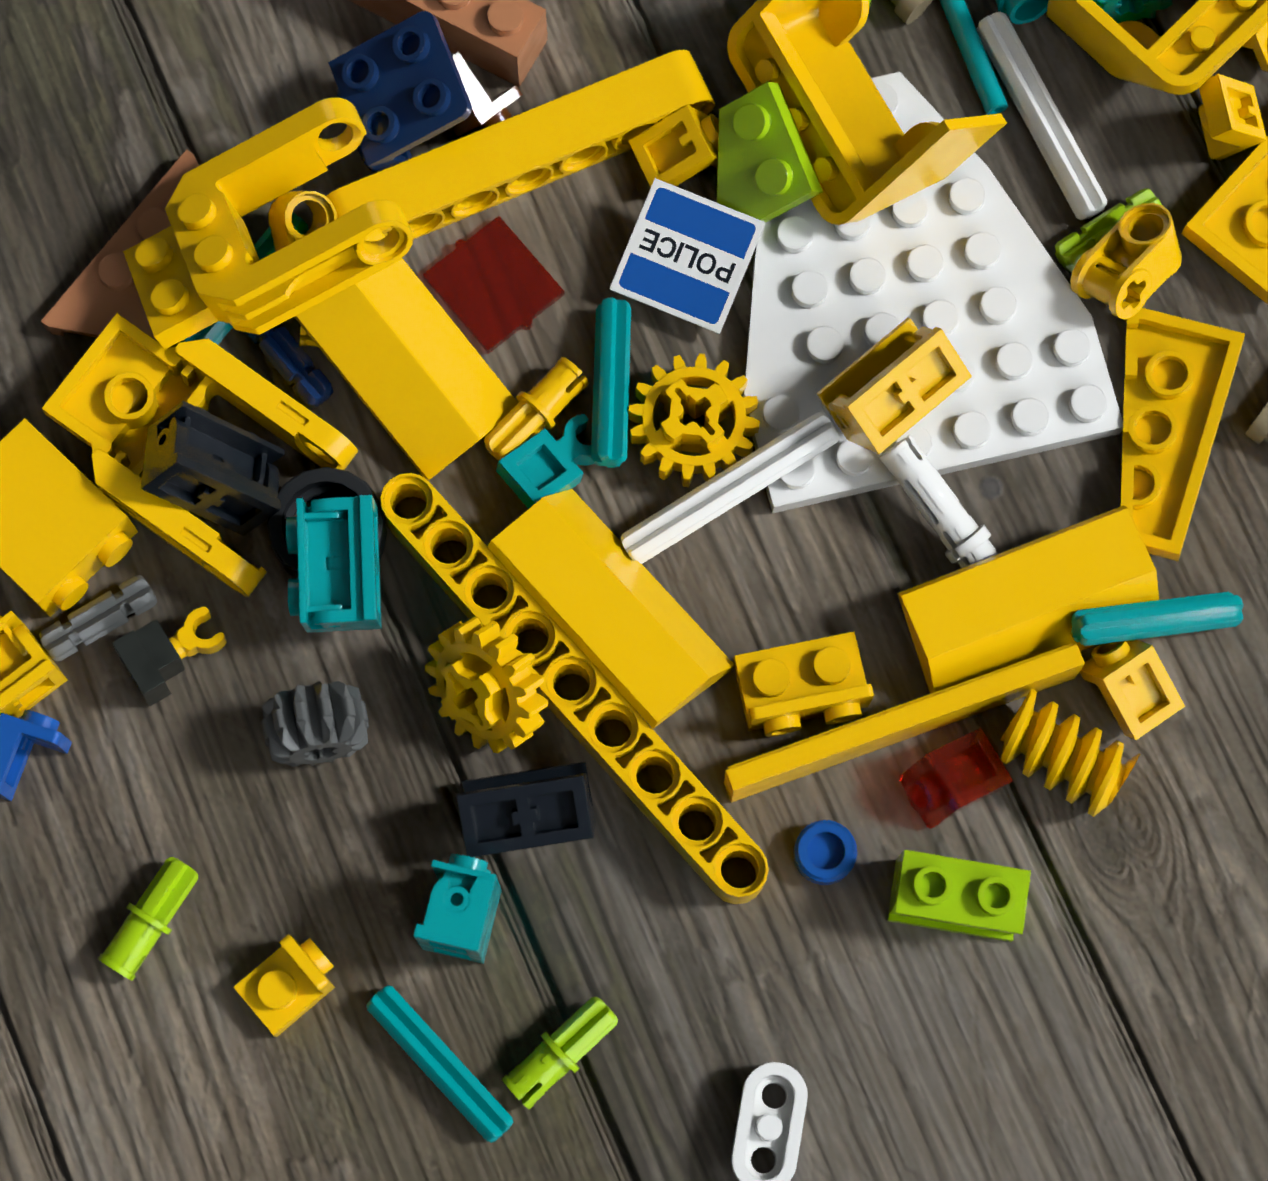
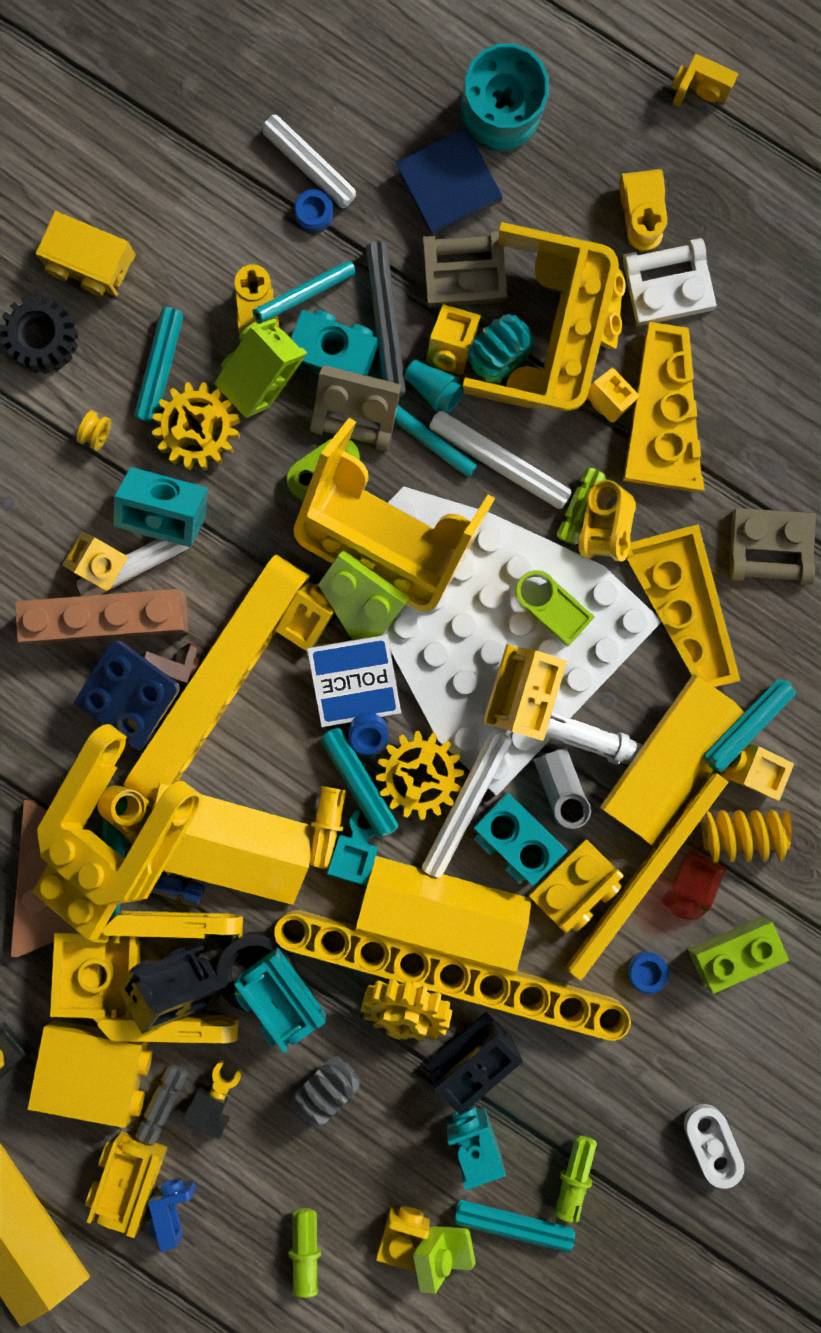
camera: 25 degrees left, 10 degrees up
(323, 1031) = (439, 1253): none -> lime bracket
(493, 284) = (252, 763): clear red piece -> none
(661, 333) = (368, 734): none -> blue tile
(779, 573) = (525, 832): none -> teal brick
(864, 548) = (560, 784): none -> light grey piece
(1000, 329) = (562, 612): none -> lime piece

